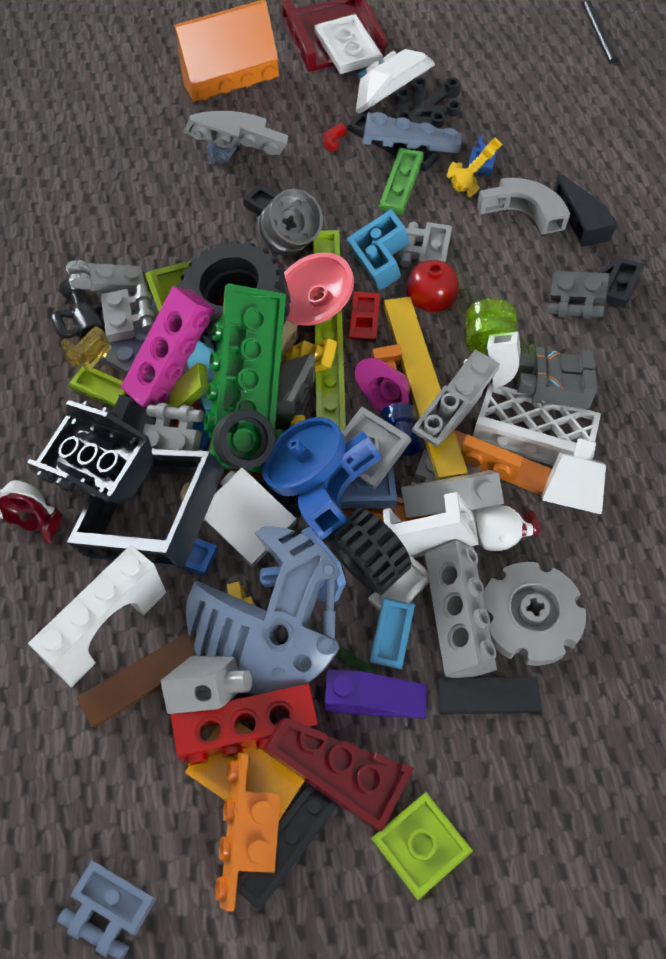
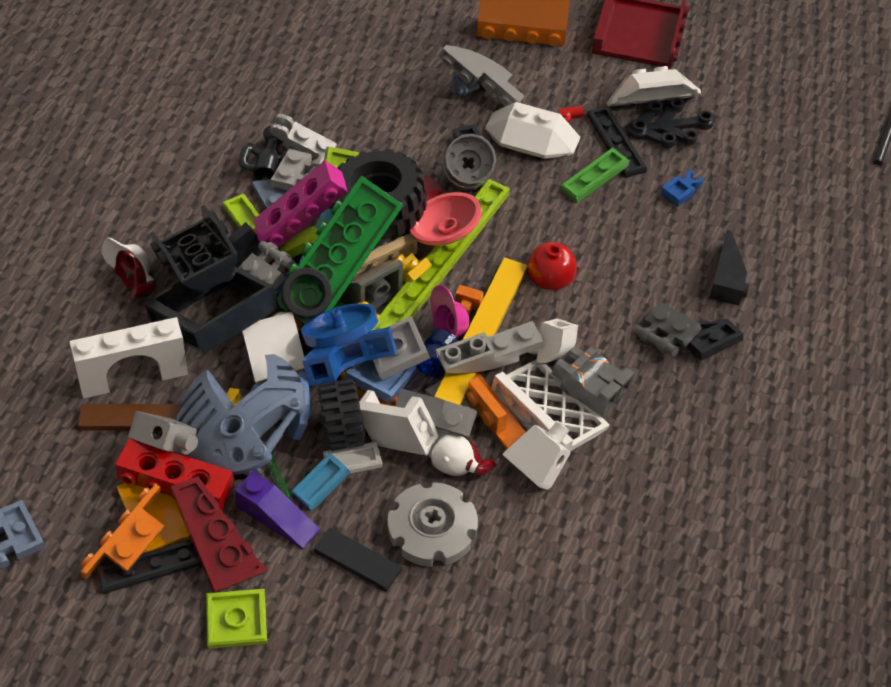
camera: 30 degrees right, 10 degrees down
(88, 350) = (251, 183): clear yellow bracket -> none
(200, 557) = (224, 360): blue plate -> none
(314, 166) = (532, 131): none -> white wedge
(348, 43) = (641, 44): white tile -> none
(364, 316) = (481, 262): red slope -> none
(376, 245) = (525, 212): dark azure brick -> none
(411, 134) = (630, 140): sand blue wing -> none
(434, 245) = (581, 234): light grey plate -> none
(457, 585) = (378, 490): light grey brick -> none
(463, 178) = (649, 197): yellow piece -> none
(486, 319) = (572, 308): clear neon green wheel -> none
(528, 197) = (688, 234): light grey arch -> none

